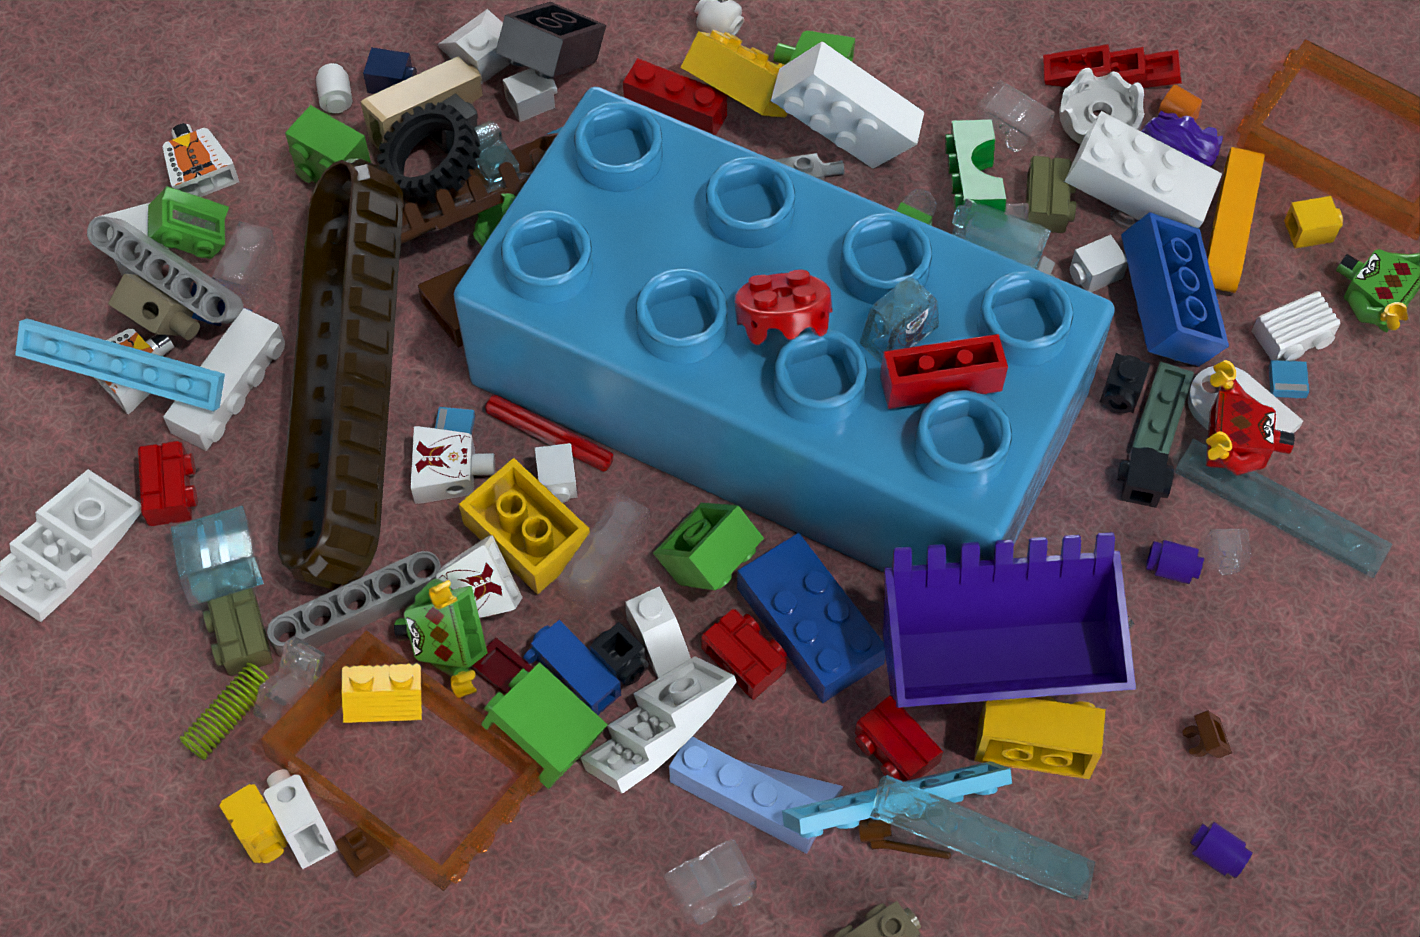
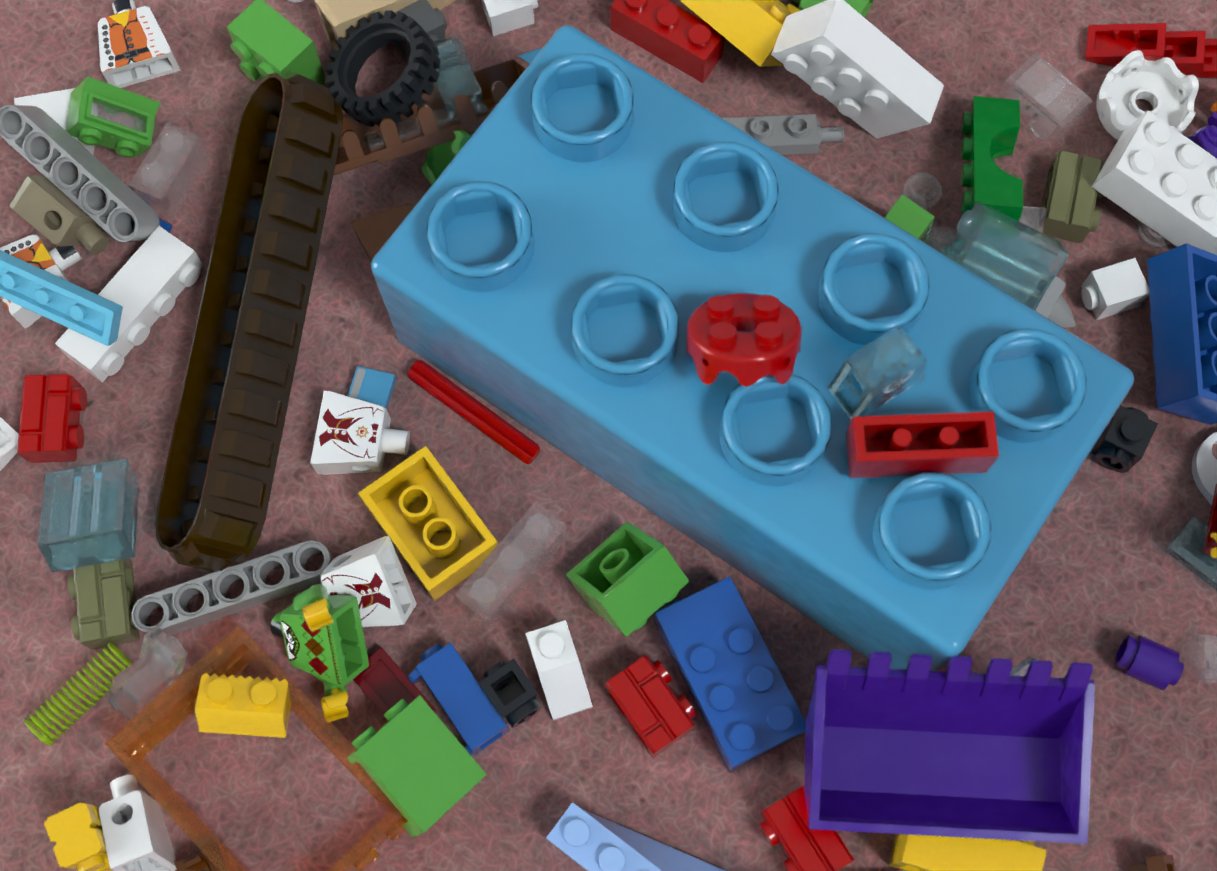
camera: 10 degrees right, 10 degrees up
(557, 471) = (473, 462): white brick -> none
(663, 722) = (544, 782): white slope -> none
(1145, 477) = (1131, 554): black brick -> none
(1163, 408) = (1160, 477): sand green tile -> none

